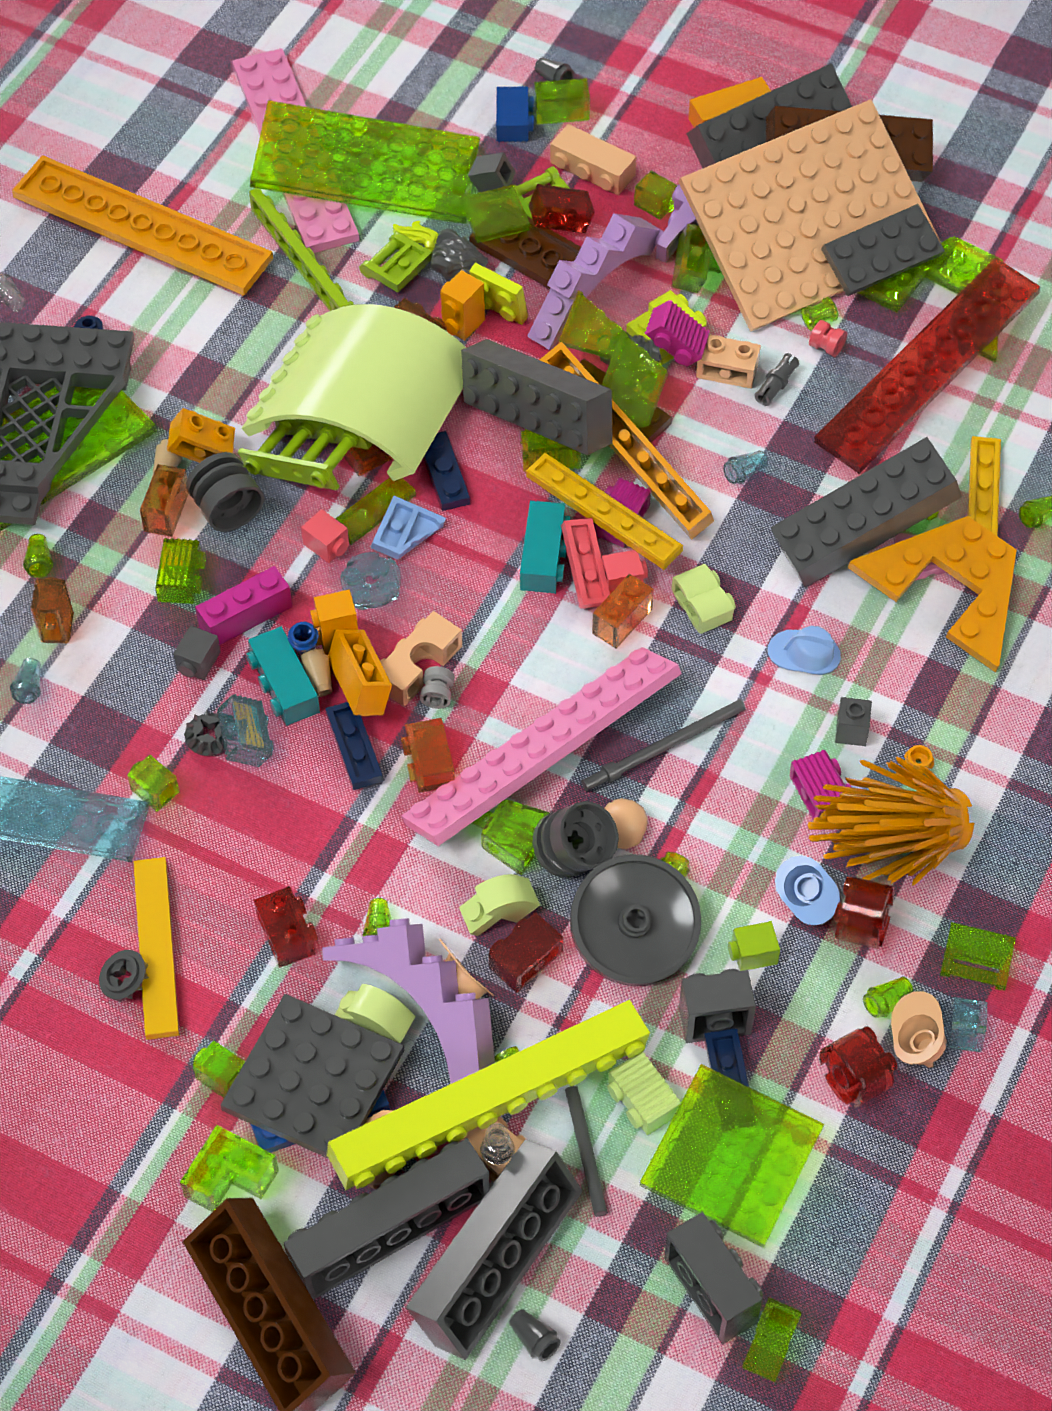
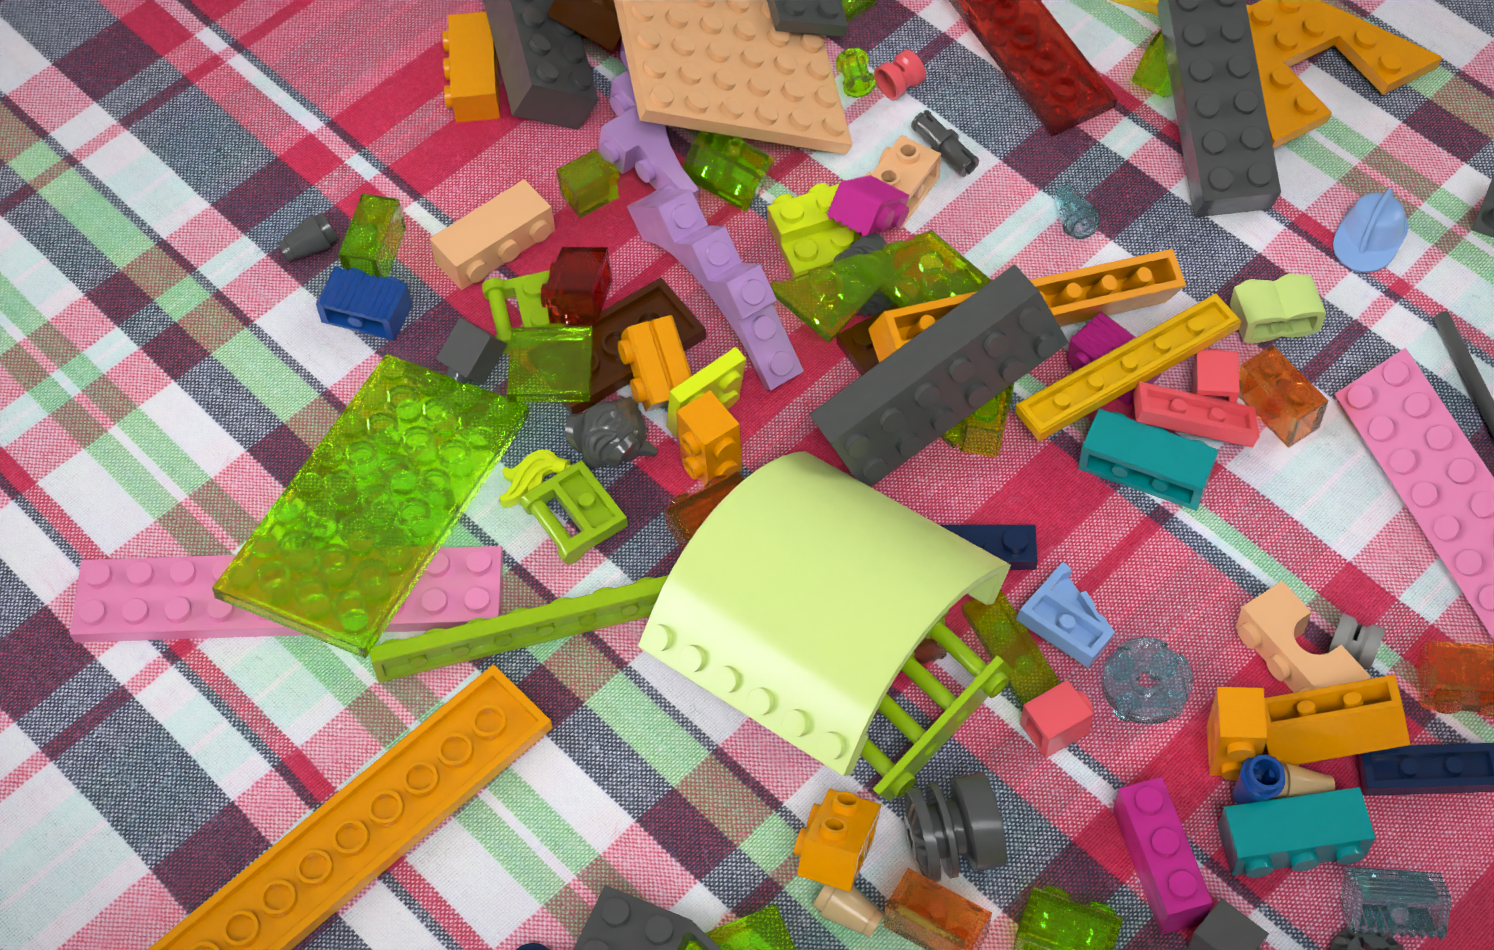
camera: 70 degrees left, 0 degrees up
(517, 259) = (655, 360): none -> light orange brick

